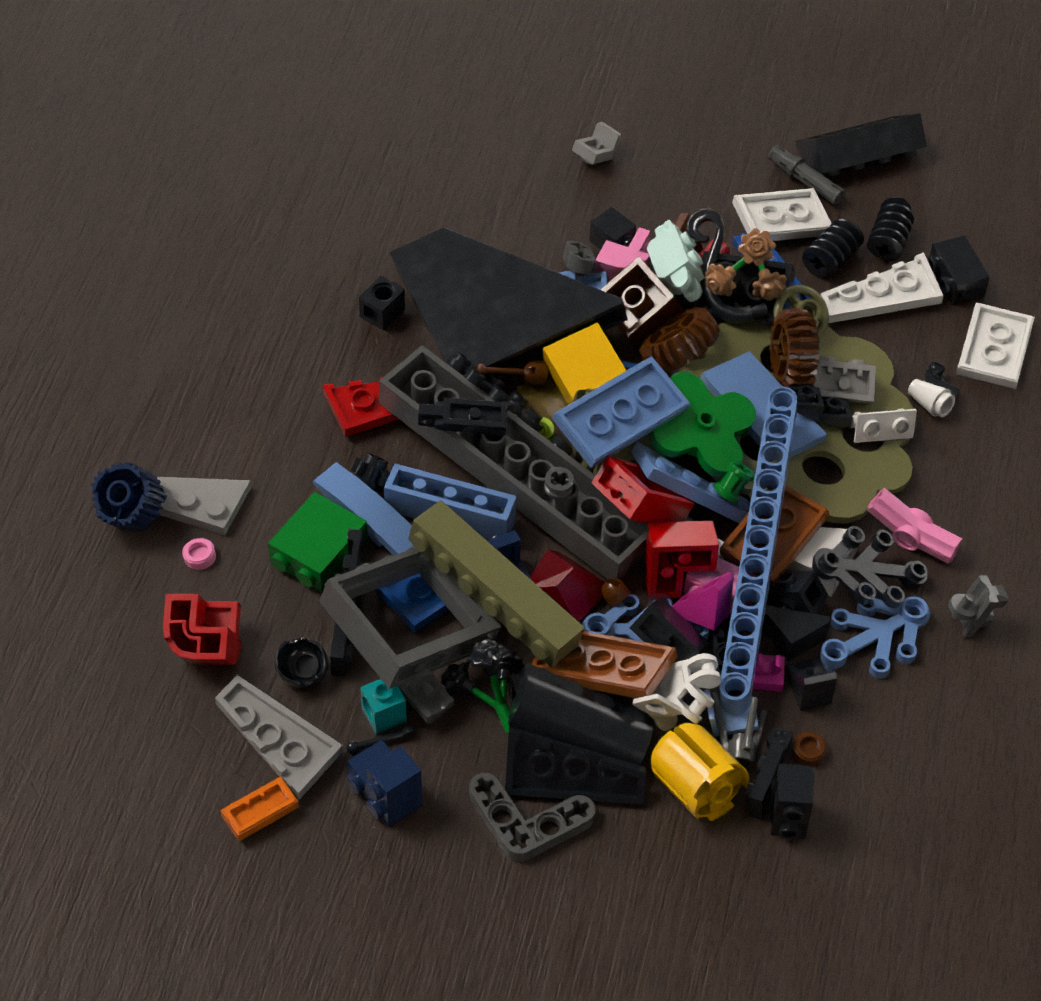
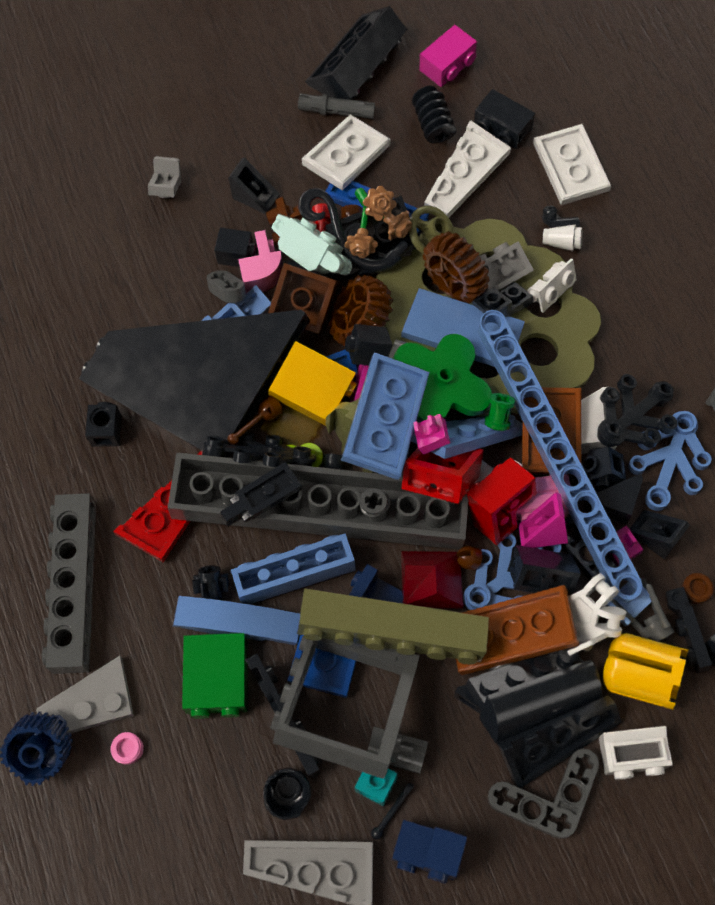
camera: 30 degrees left, 15 degrees up
(202, 629) = (190, 825): red brick -> none
(255, 403) = (76, 655): none -> dark grey brick
(497, 663) = (437, 698): black plant -> none
(634, 830) = (635, 752): none -> white window
(651, 450) = (431, 433): none -> dark pink tile
(665, 354) = (367, 340): none -> black brick
(668, 192) = (251, 187): none -> black slope
(832, 248) = (404, 157): black piece -> none
(913, 527) = (635, 355): bright pink piece -> none
(949, 189) = (448, 56): none -> dark pink brick

